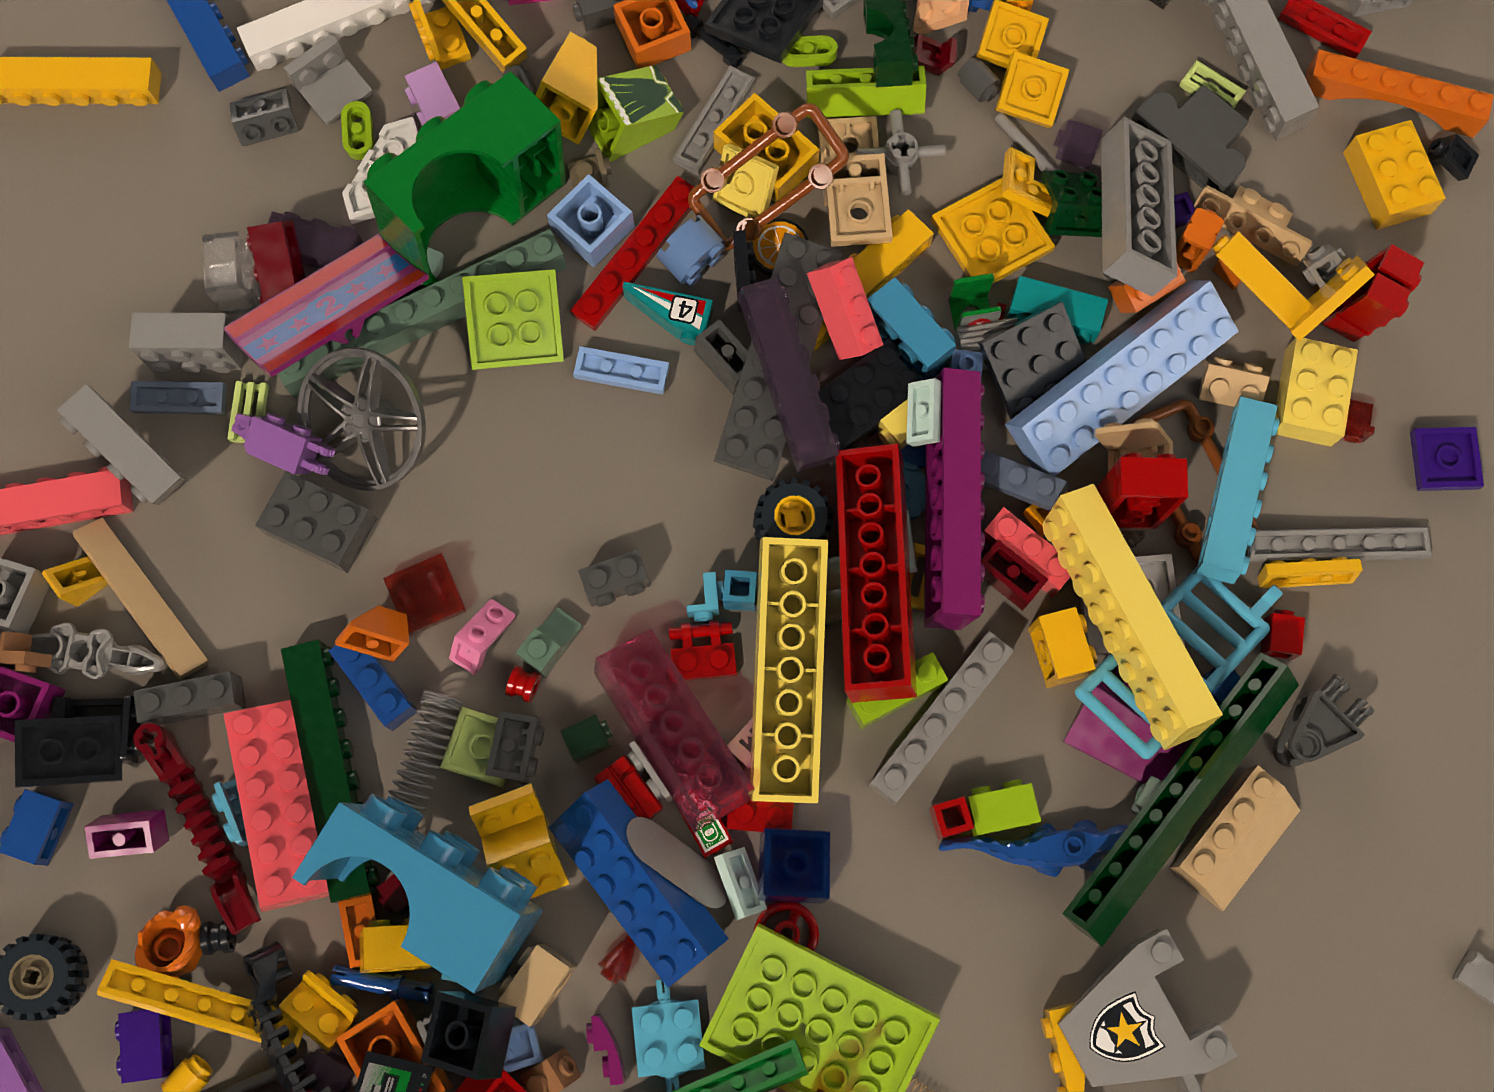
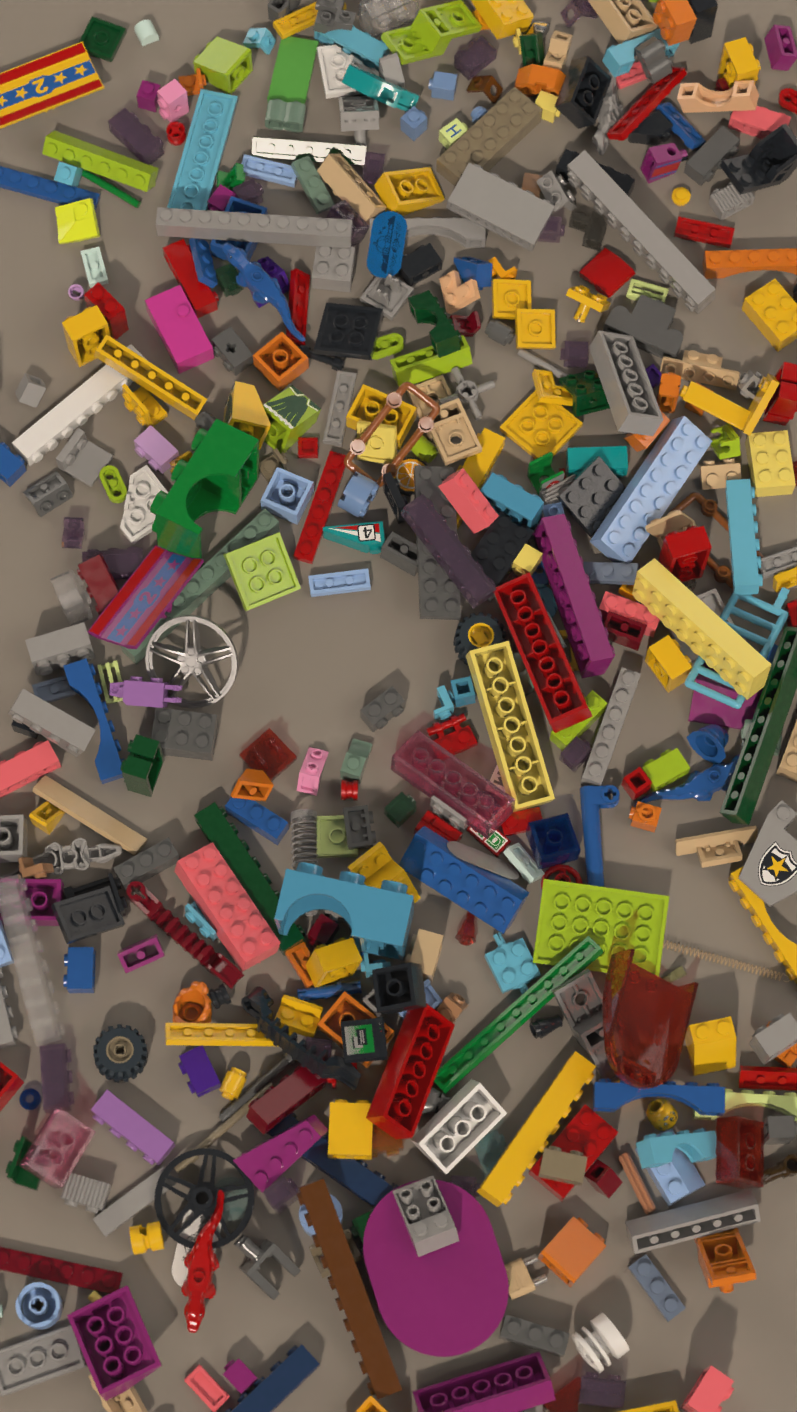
camera: 20 degrees left, 5 degrees down
(195, 526) = (81, 681): none -> blue arch
(230, 551) = (142, 765): none -> dark green piece
(275, 183) = (73, 533): none -> bracket
(602, 1038) = (474, 977): magenta slope -> none
(649, 162) = (307, 447): none -> red tile
(811, 214) = (425, 450): none -> lime brick
(873, 821) = (592, 800): none -> blue axle
(877, 738) = (576, 753): none -> brick
(924, 412) = (538, 548): light aqua plate -> none
(947, 873) = (645, 816): none -> orange brick
(1042, 959) = (717, 847): none -> tan bracket
(1085, 789) = (709, 742): none -> blue piece
(1121, 72) = (587, 301): none -> yellow plate
(1163, 41) = (607, 272): none -> red slope
(1261, 341) = (727, 444): none -> lime hinge

